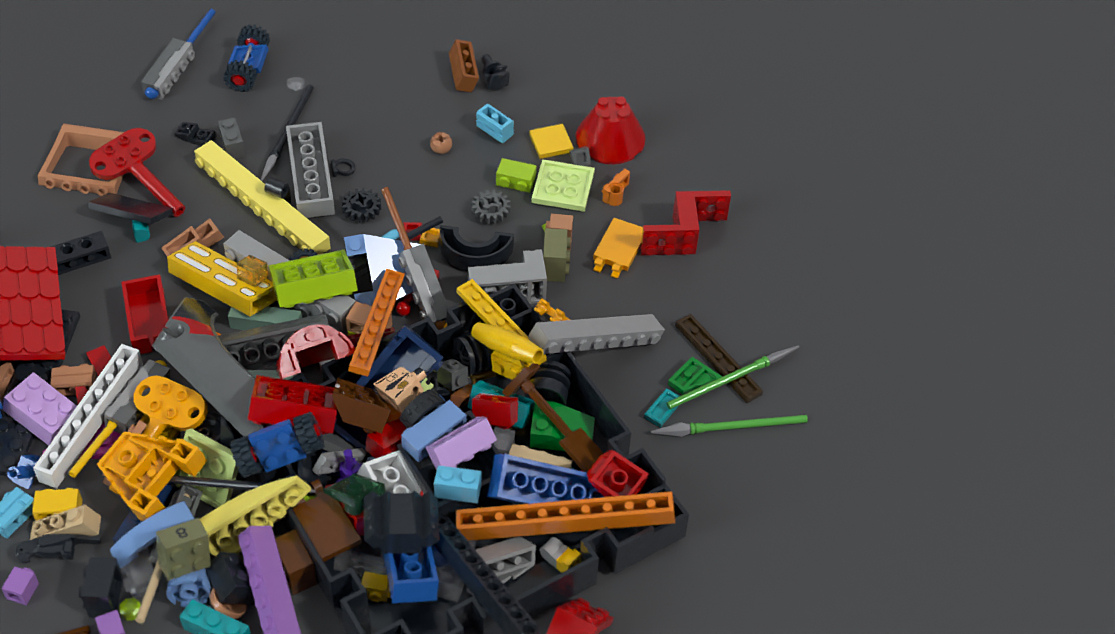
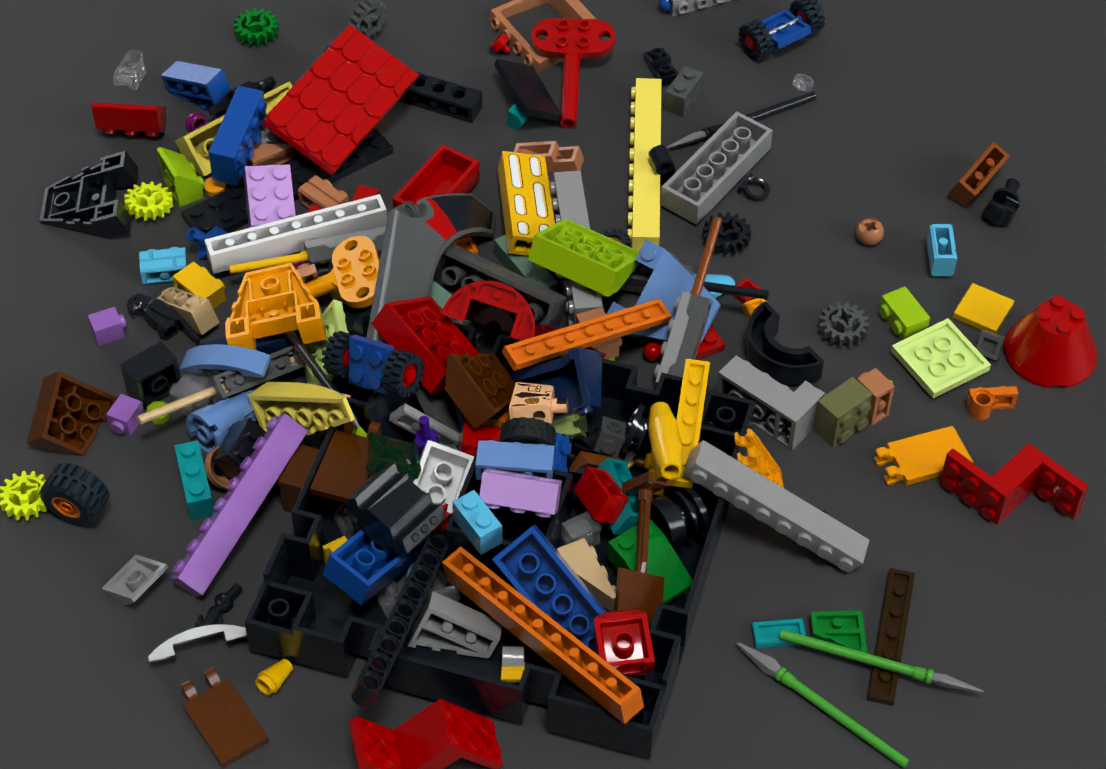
camera: 50 degrees right, 0 degrees up
(70, 193) = (500, 44): none -> red tile
(183, 549) = (221, 389): olive brick -> none
(252, 270) = (546, 211): clear yellow brick -> none

